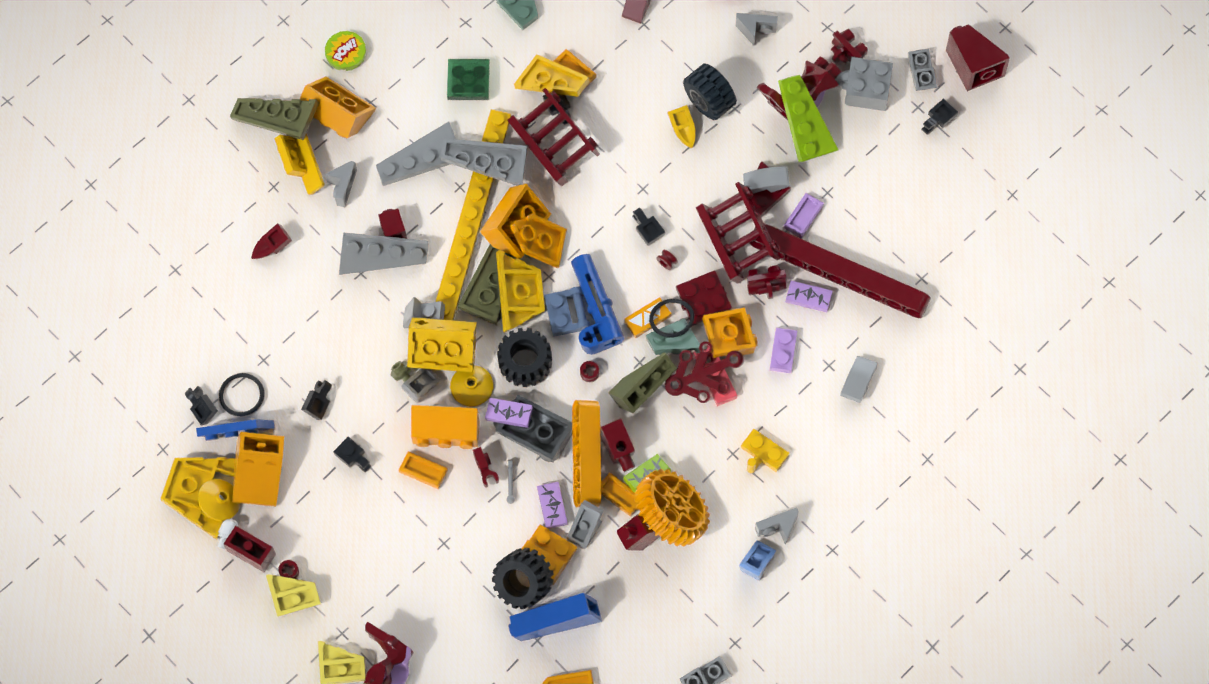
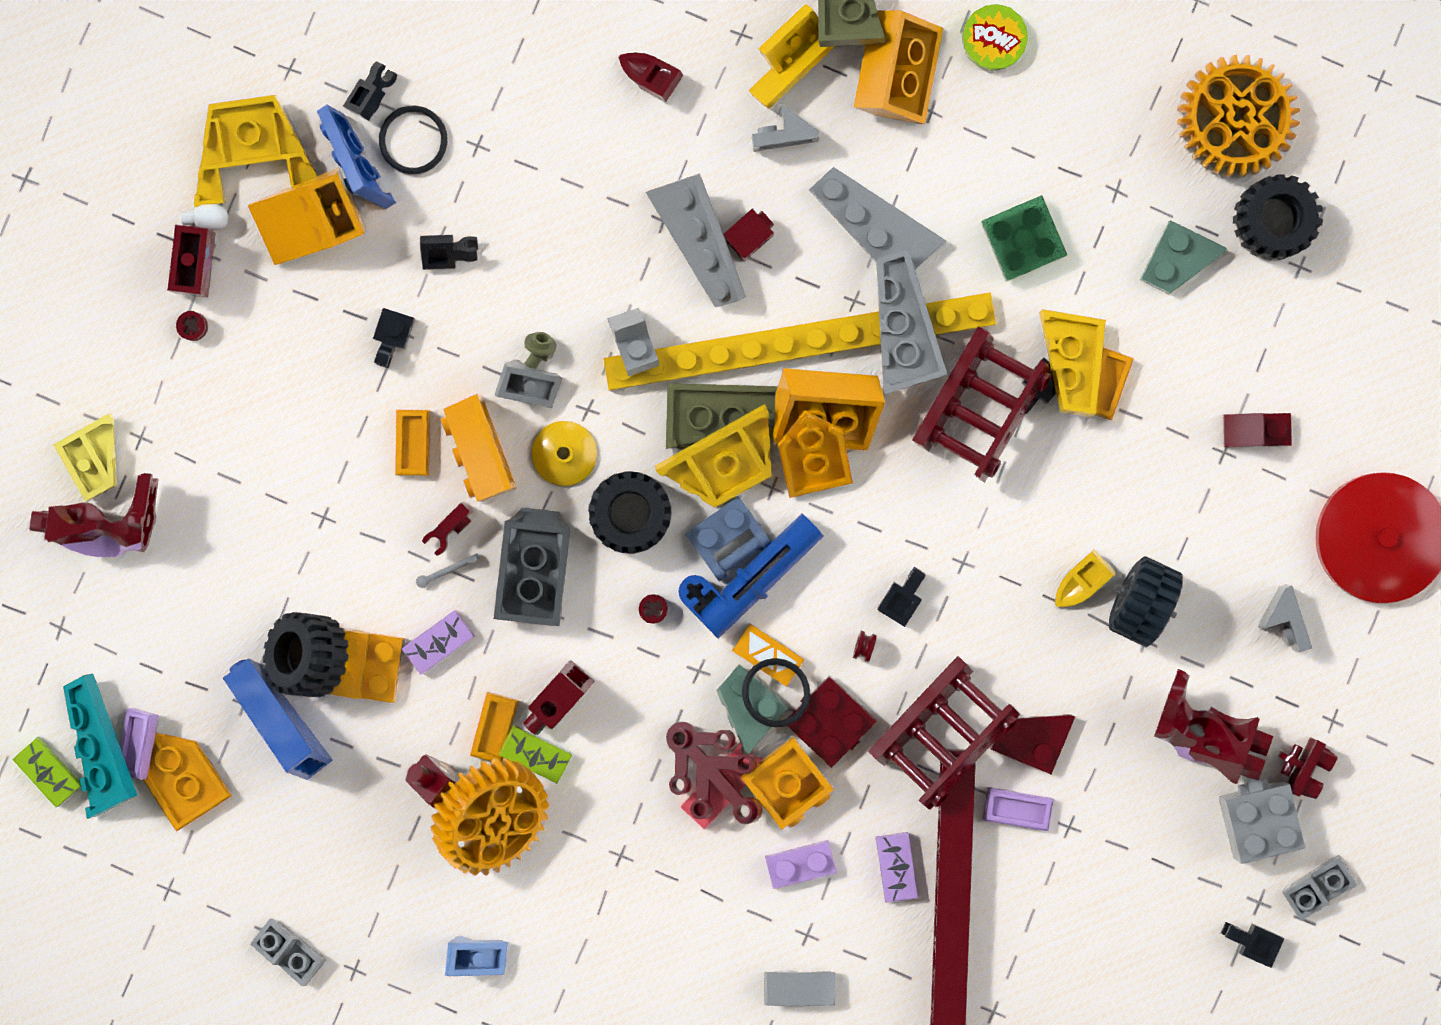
camera: 60 degrees right, 20 degrees up
(212, 504) = (237, 171): yellow dish -> none
(292, 594) = (158, 347): light yellow wing -> none
(441, 344) = (594, 390): yellow piece -> none
(509, 412) = (535, 529): lavender tile -> none
(585, 524) = (425, 702): light grey slope -> none
(586, 452) = (523, 662): light orange beam -> none
(642, 383) = (655, 690): olive slope -> none
(763, 451) = (640, 898): yellow plate -> none
(766, 283) = (886, 803): dark red hips -> none
(767, 178) = (1043, 740): light grey slope -> none
(783, 521) = (547, 970): light grey slope -> none
(805, 122) = (1154, 761): lime wing -> none
(975, 57) = (1367, 960): dark red slope -> none

